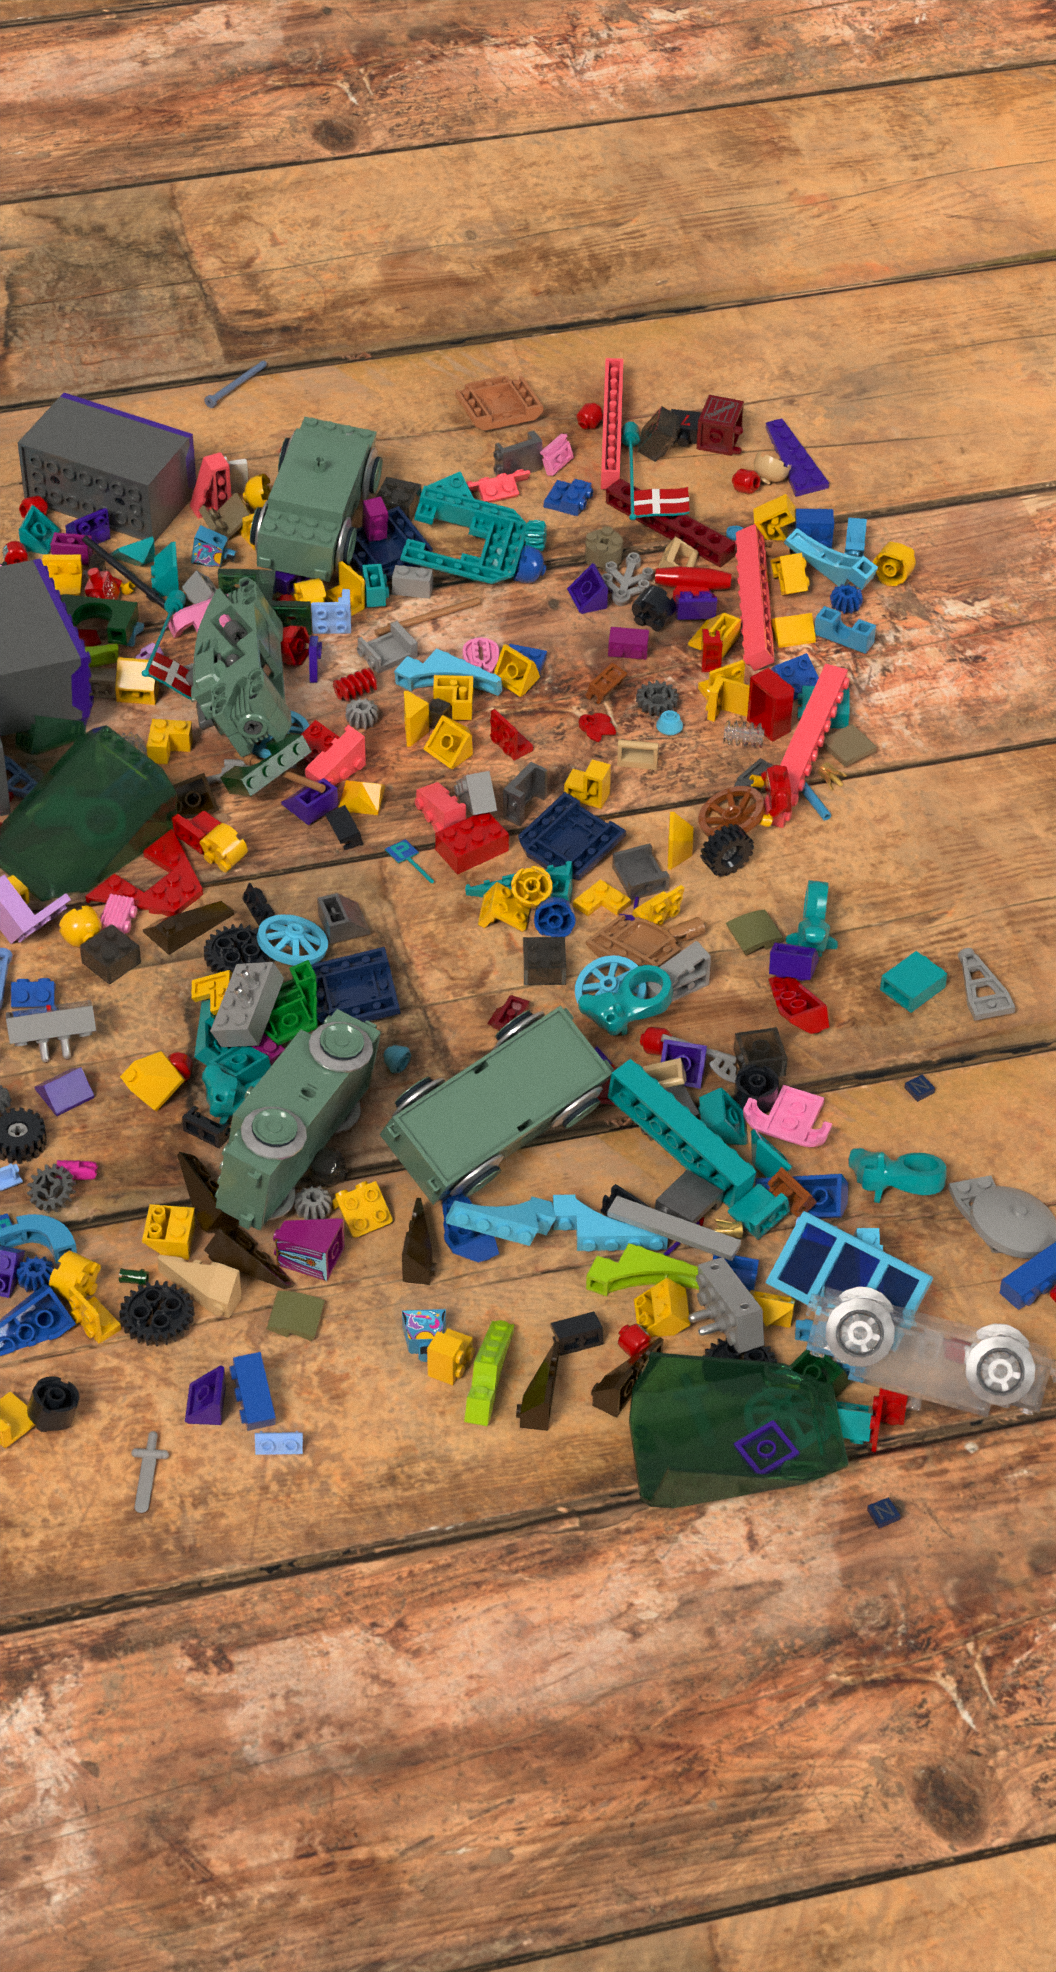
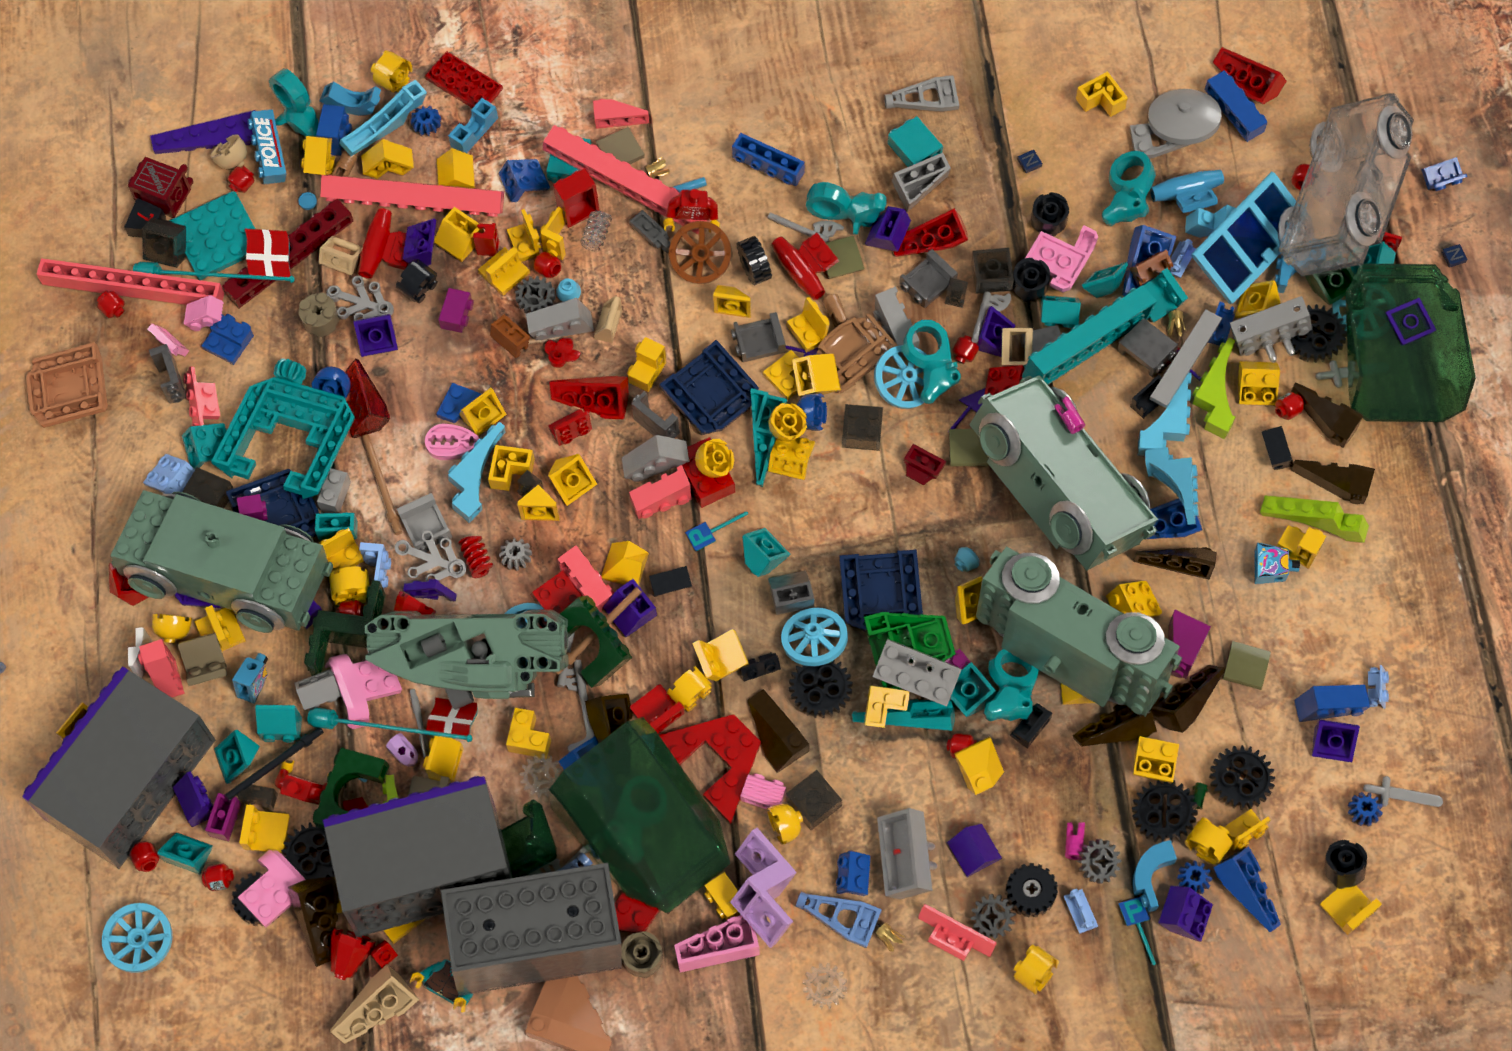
camera: 80 degrees left, 20 degrees up
(112, 1243) = (1183, 811): none -> black gear
(124, 1429) = (1368, 816): none -> blue gear
(212, 1286) = (1221, 732): tan wedge -> none
(261, 865) = (721, 655): none -> yellow bracket
(352, 625) = (434, 559): none -> light grey plant
(387, 894) = (763, 552): none -> teal slope
(412, 473) = (169, 475): none -> light blue bracket
(472, 823) = (714, 458): none -> yellow cylinder
(506, 594) = (365, 402): none -> clear red wedge
(553, 750) = (598, 395): none -> red wedge
(560, 1095) = (1070, 417): none -> dark pink hinge
(587, 469) = (203, 313): none -> bright pink brick
(597, 912) = (816, 374): none -> yellow slope
(629, 715) = (560, 320): none -> light grey wedge
(682, 673) = (504, 270): none -> yellow bracket
(684, 468) = (216, 234): none -> teal plate
(694, 702) = (547, 265): none -> red head
(727, 1028) = (956, 292): none -> clear smoke brick
(739, 898) = (804, 263): none -> red plate
(740, 1006) = (928, 279): none -> flat silver panel
(780, 911) = (826, 224): none -> light grey piece
(796, 485) = (267, 146): none -> dark azure brick
(832, 484) = (296, 102): none -> teal animal
(847, 1102) = (1050, 213): none -> black brick
(860, 857) = (768, 159): none -> blue brick
(864, 985) = (920, 179): none -> light grey wedge
(889, 732) = (615, 113): none -> coral slope
(903, 624) = (462, 80): none -> red tile
(910, 1228) = (1190, 190): none -> dark azure plate
(1000, 1494) = (1443, 173): none -> bracket
(1024, 1140) = (1102, 91): none -> yellow brick

